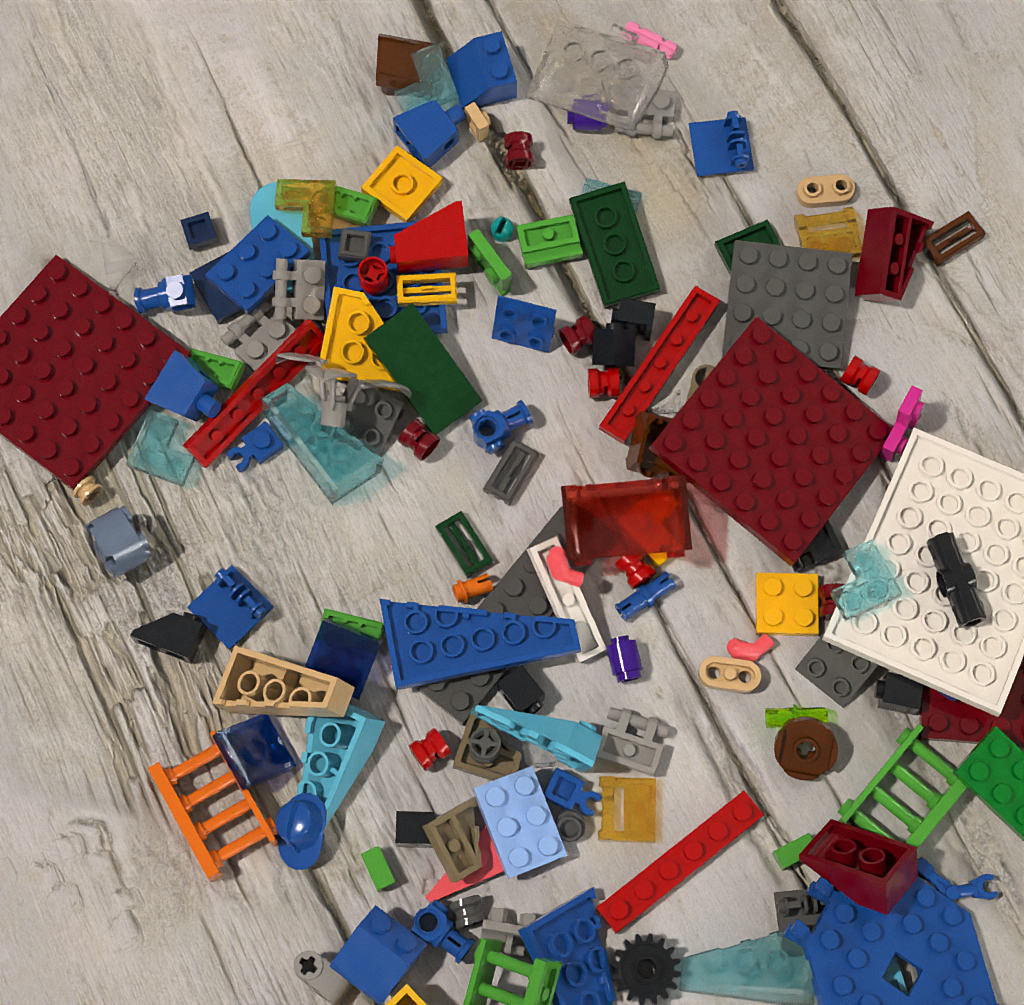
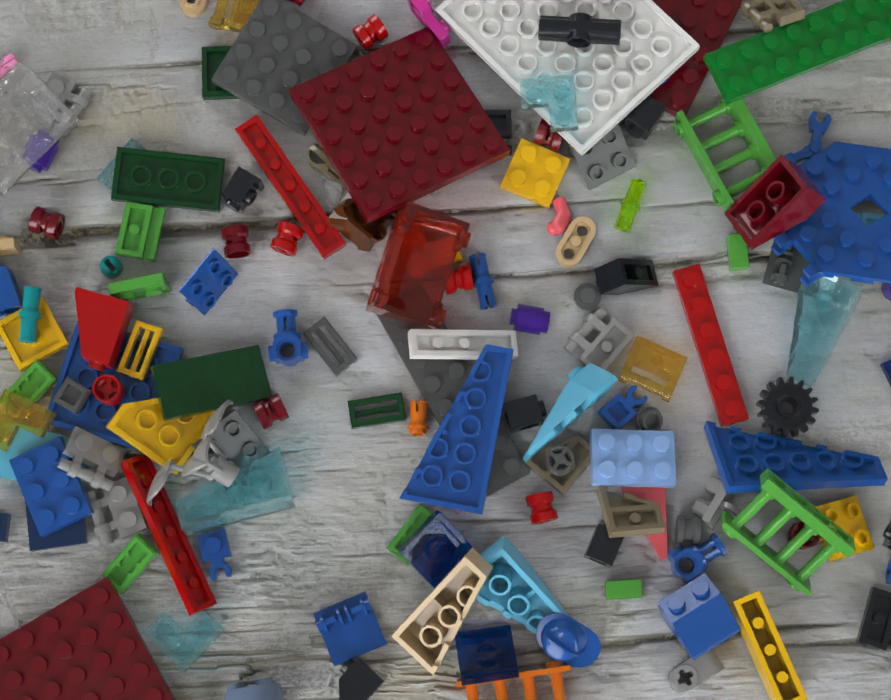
camera: 65 degrees left, 5 degrees up
(171, 294) = (43, 575): blue connector -> none
(185, 389) = (140, 593): blue torso -> none
(418, 172) = (30, 314): none -> teal pin
(560, 569) = (439, 337): coral arm -> none
(613, 346) = (261, 216): black brick -> none
(675, 710) = (587, 296): none -> dark grey plate
(714, 741) = (625, 276): none -> black slope
(721, 145) = (118, 56): blue hinge -> none
(816, 762) = (646, 207): reddish brown plate -> none

